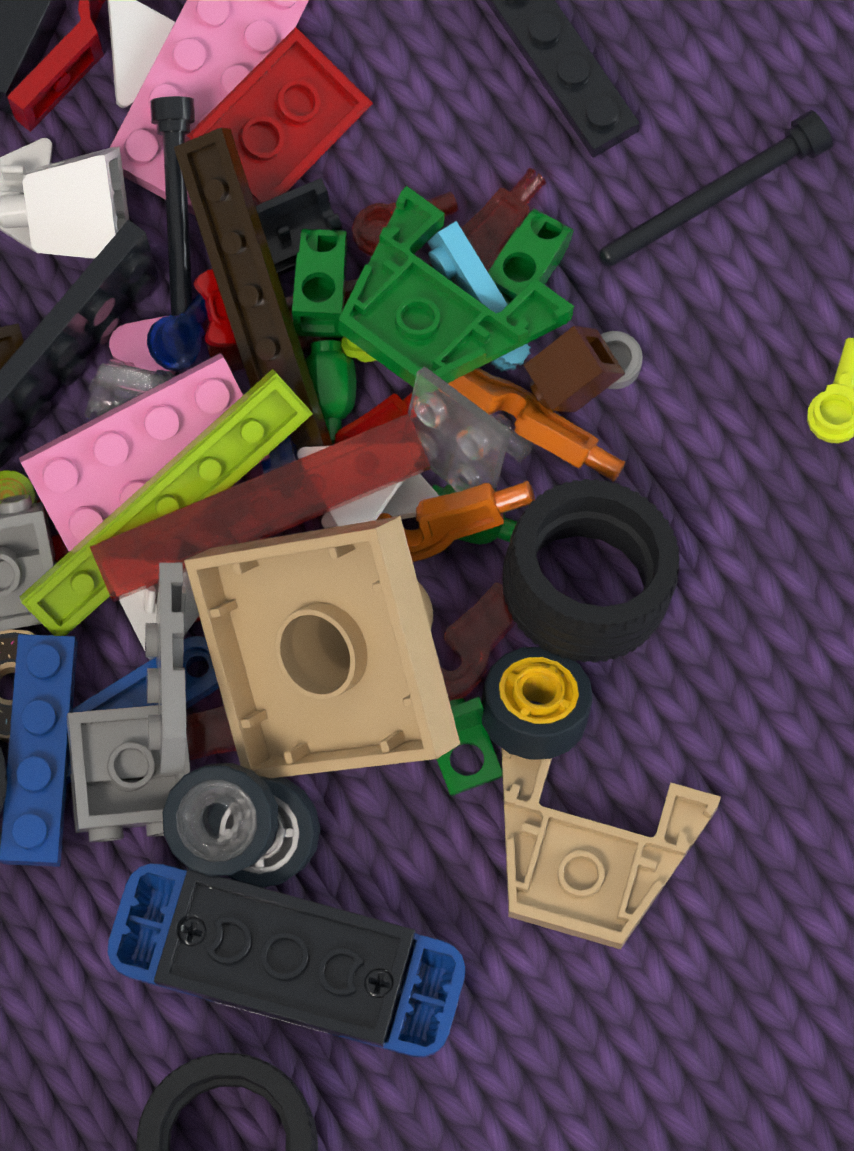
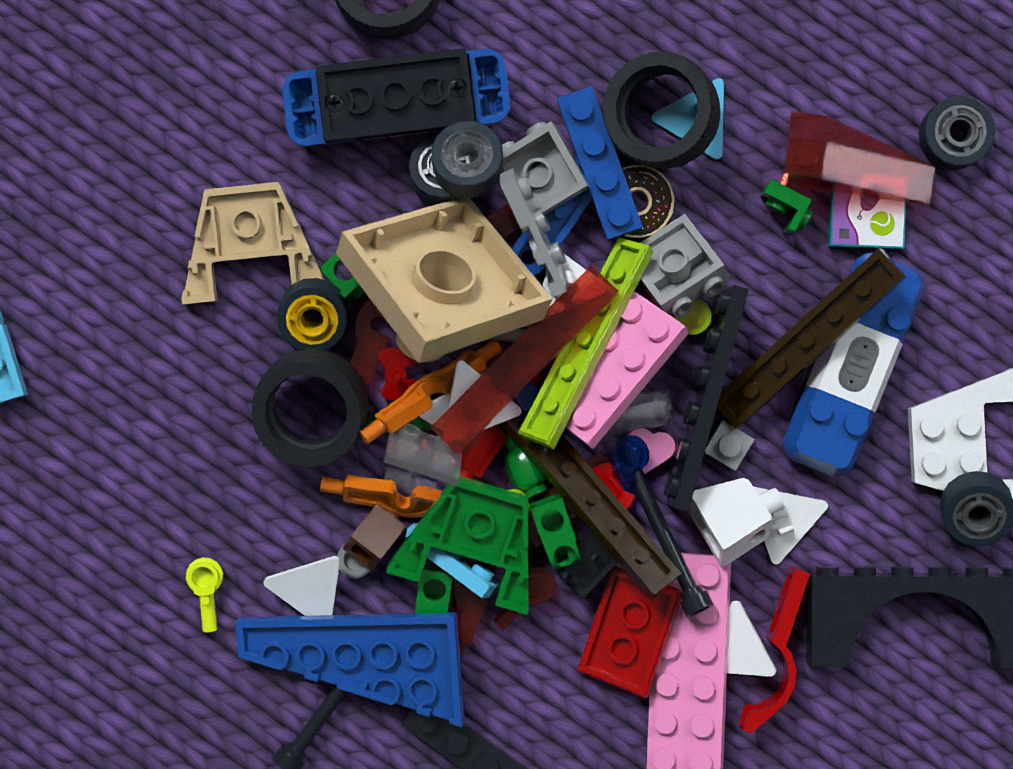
camera: 155 degrees right, 15 degrees up
(31, 304) = (728, 445): none -> light grey plate
(456, 569) = (394, 373): none -> red piece
(640, 215) = (376, 656): none -> blue wing
(693, 338) = (308, 587): none -> white piece

